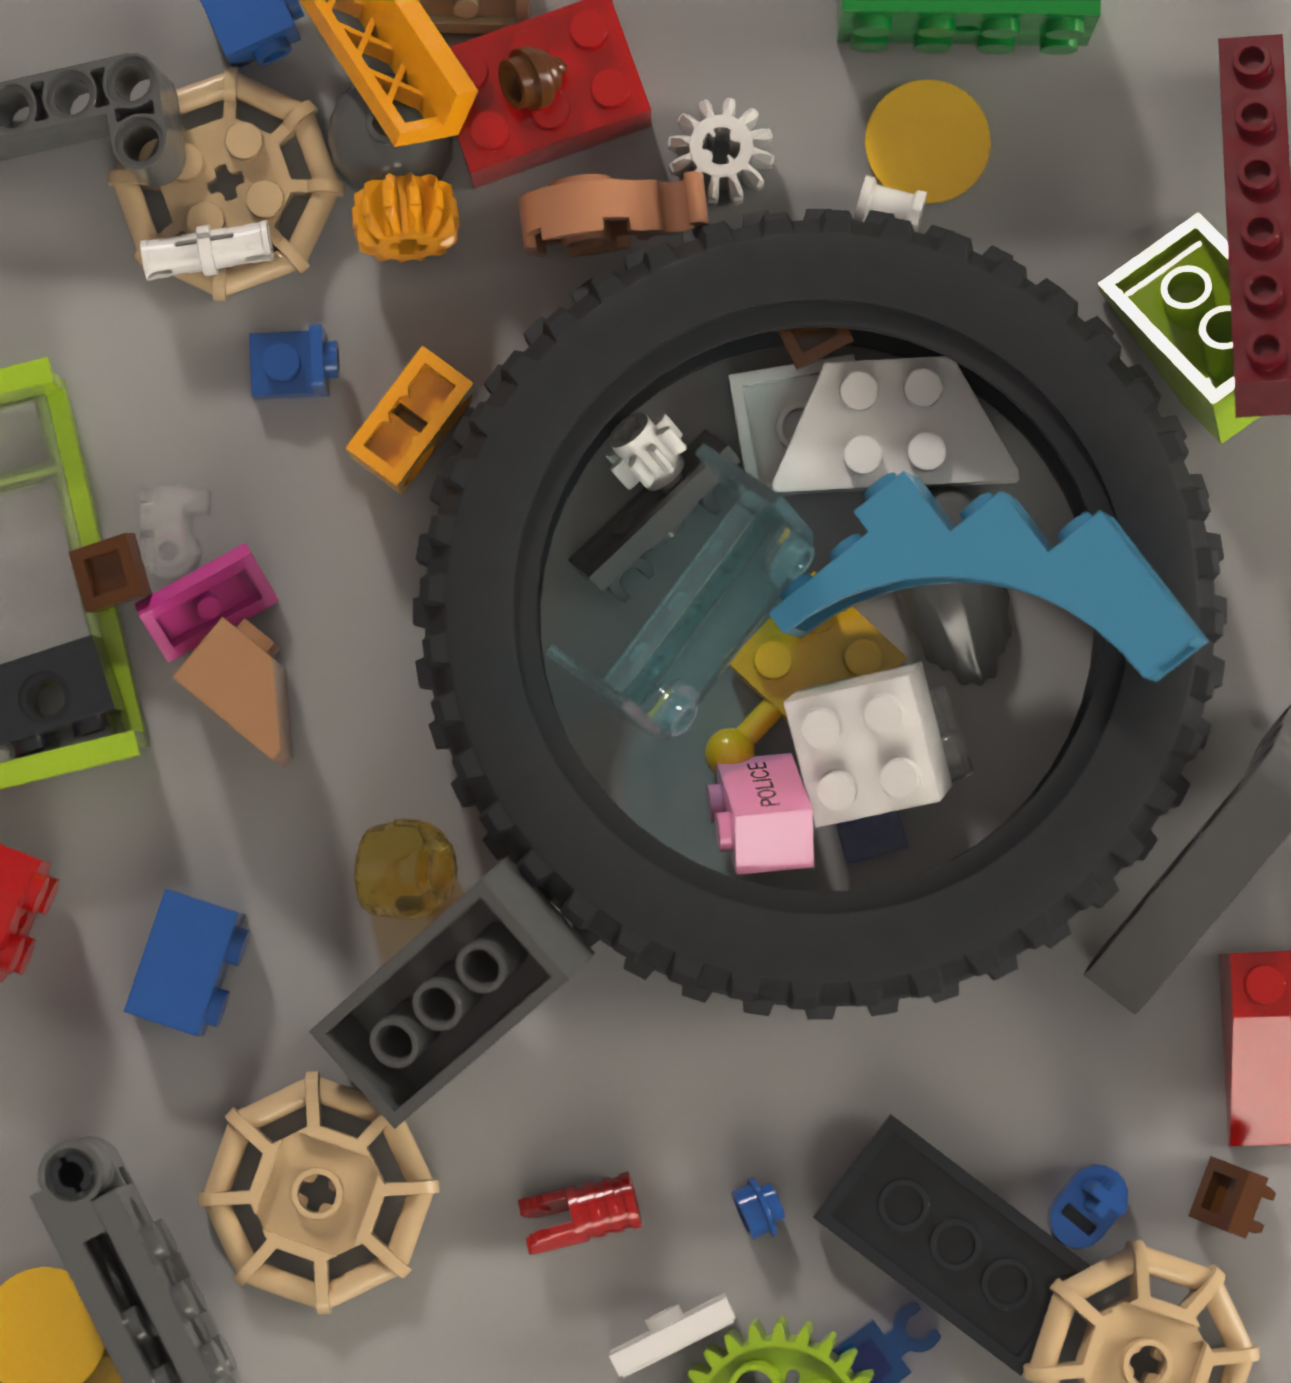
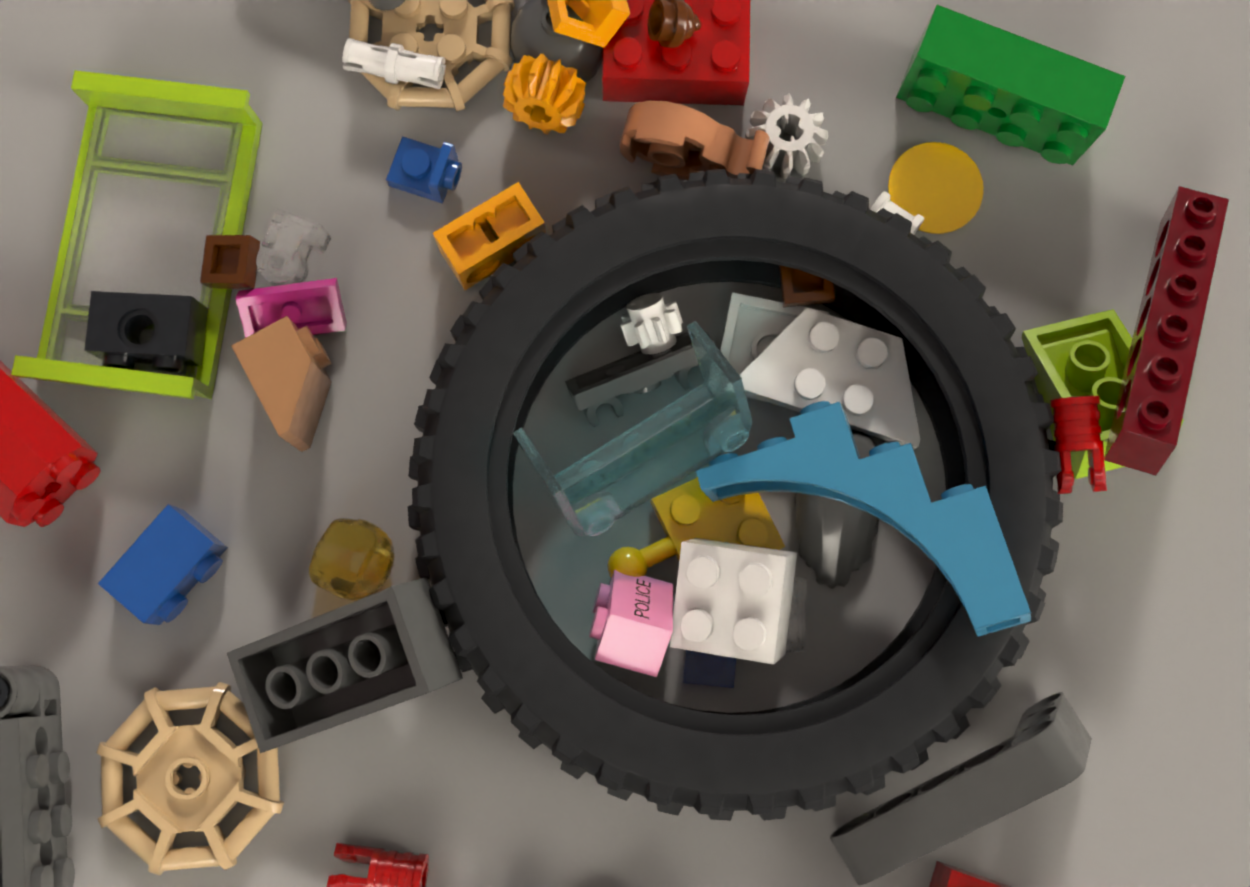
camera: 10 degrees right, 5 degrees down
(1193, 397) = (1078, 430): none -> red hinge

